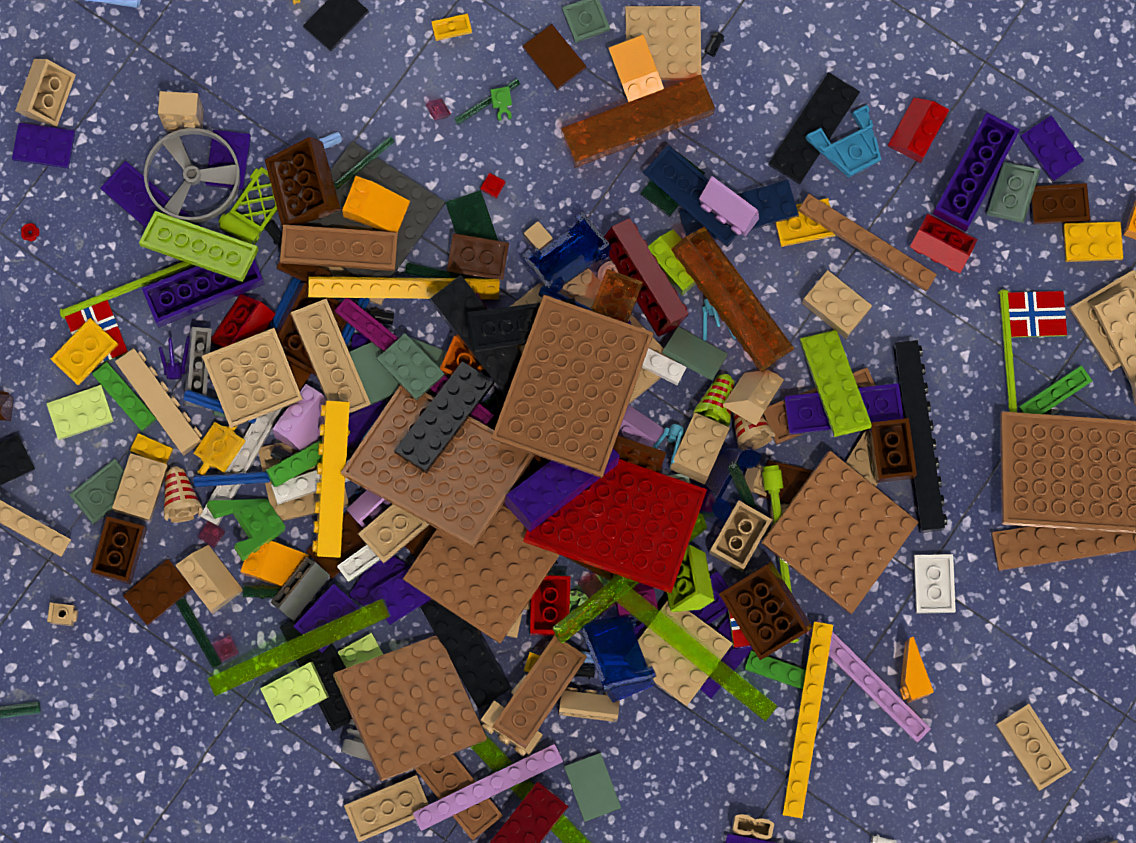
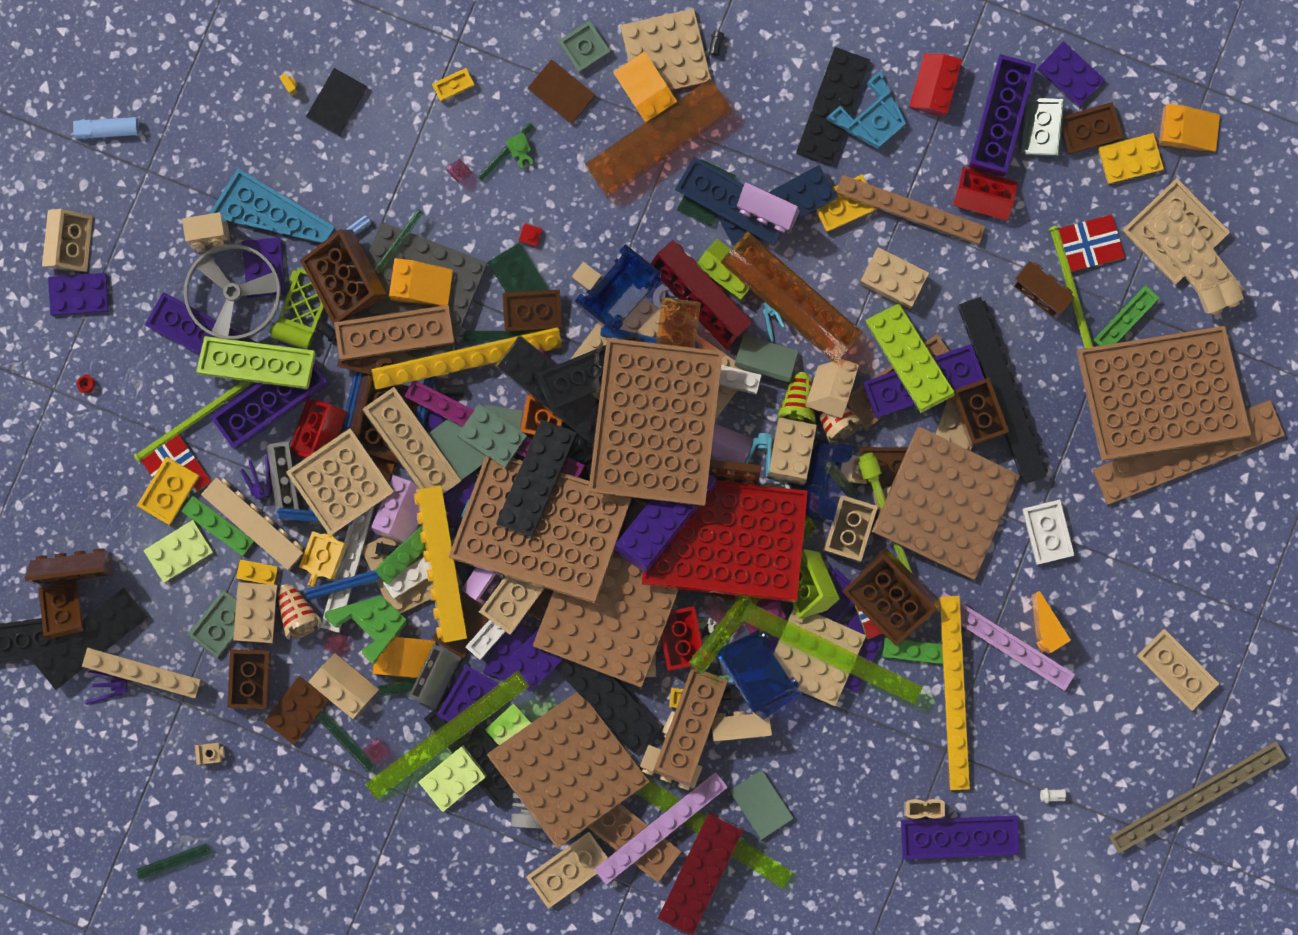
camera: 10 degrees left, 5 degrees up
(237, 100) = (259, 206): none -> dark azure wing
(980, 347) = (1043, 290): none -> reddish brown brick

